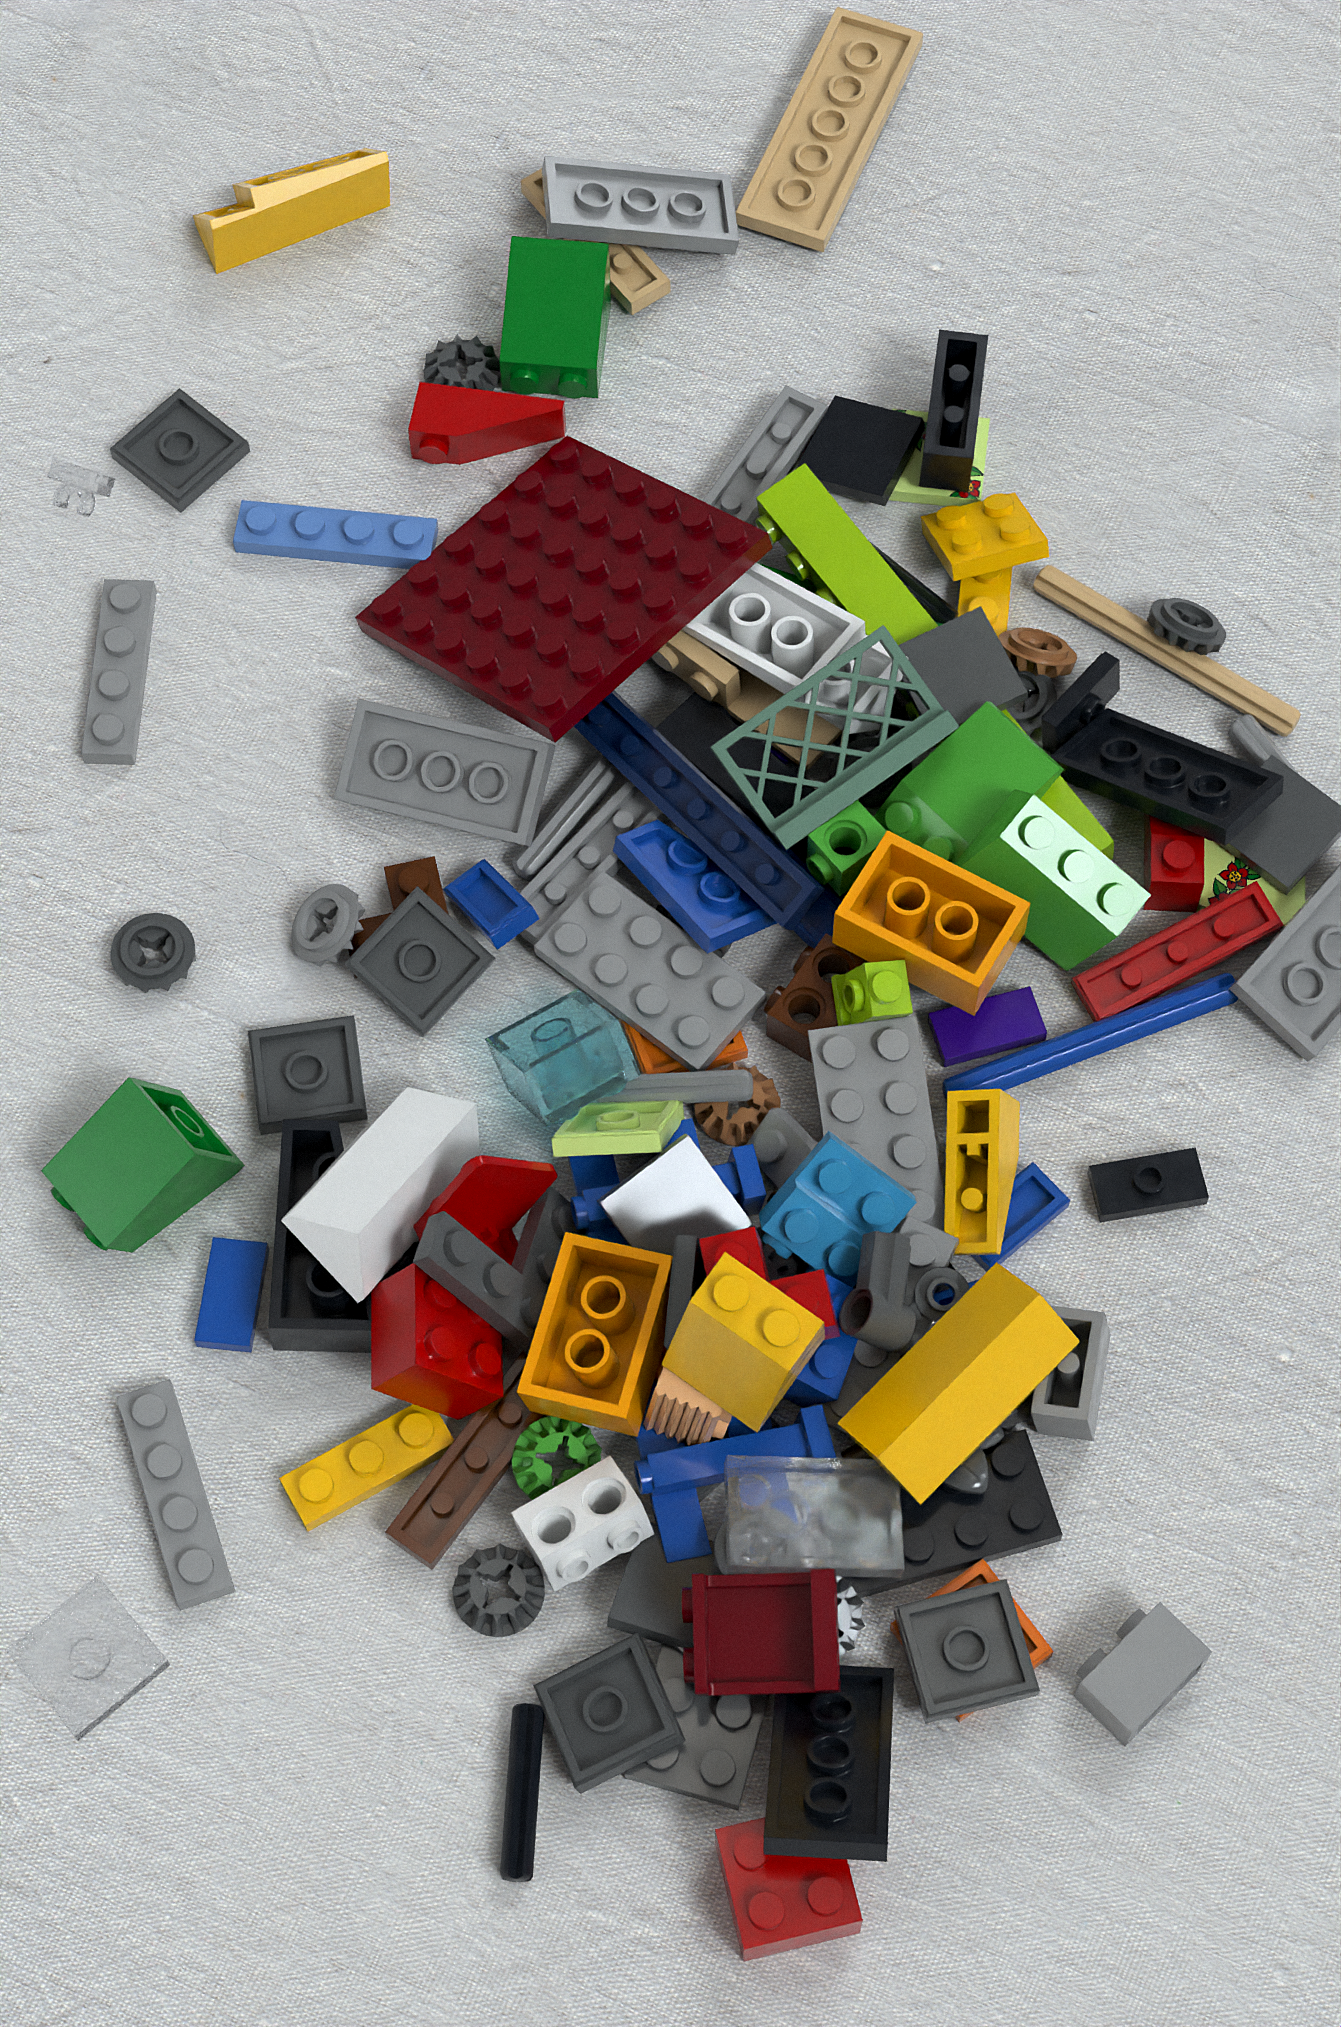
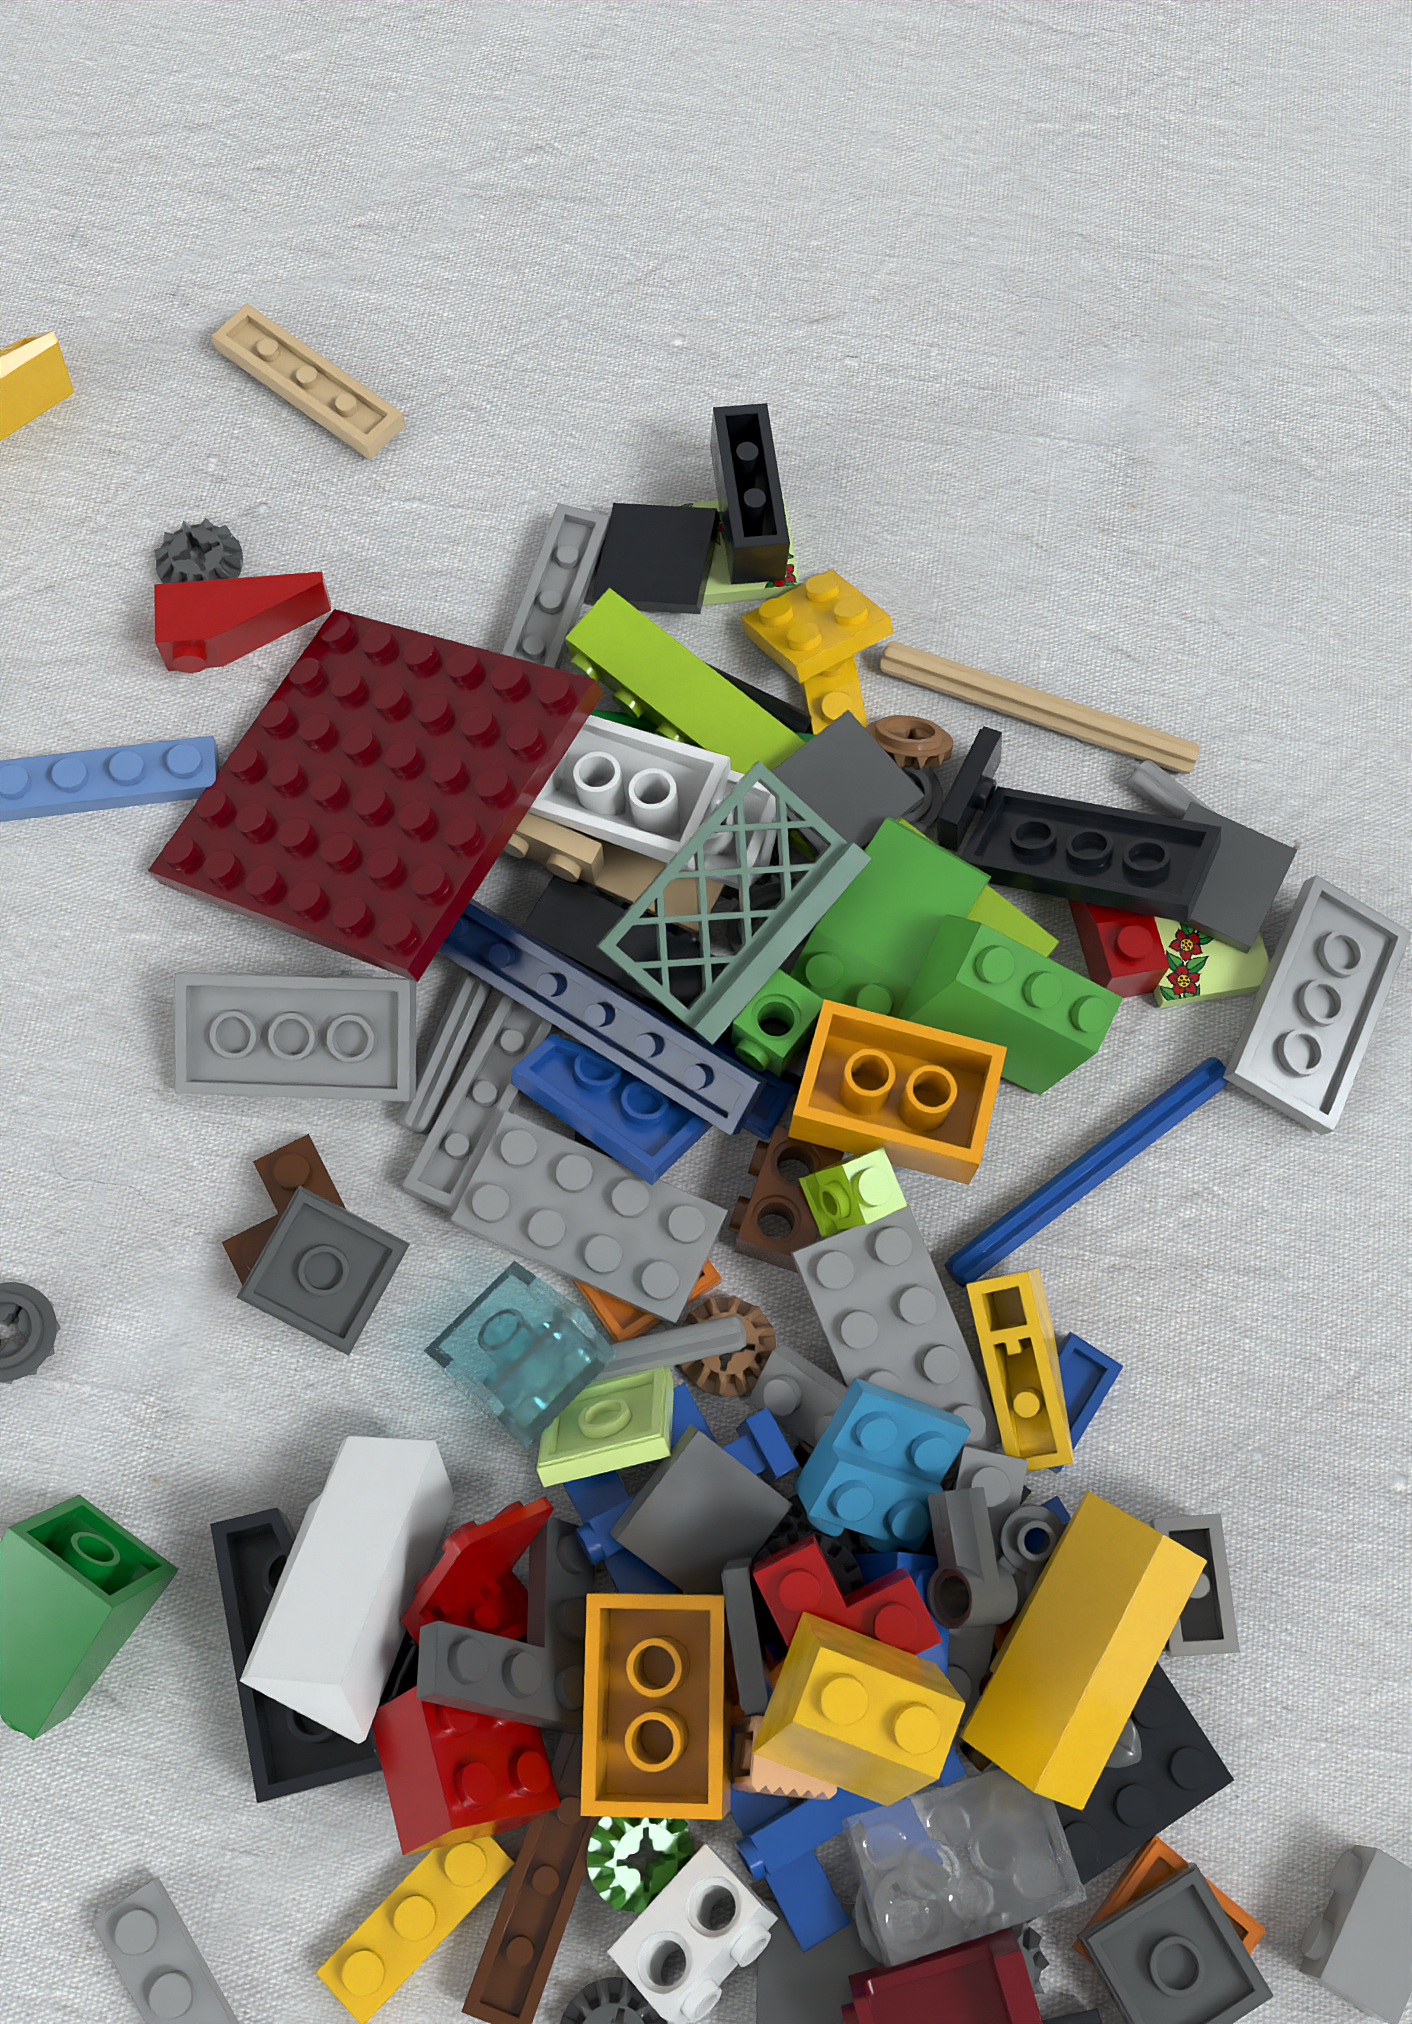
camera: 20 degrees left, 5 degrees up
(232, 1295) = (202, 1743): blue tile -> none
(307, 1073) = (225, 1437): dark grey tile -> none
(309, 930) = (187, 1260): light grey gear -> none
(491, 904) = (388, 1179): blue tile -> none
(555, 317) = (287, 479): green slope -> none
(639, 205) = (347, 337): light grey plate -> none
(829, 129) = (527, 218): tan plate -> none
(998, 1026) = (1001, 1174): dark purple tile -> none
(1147, 1185) = (1198, 1324): black plate -> none
(1177, 953) = (1152, 1049): red tile -> none
(1186, 625) = (1055, 676): dark grey gear -> none

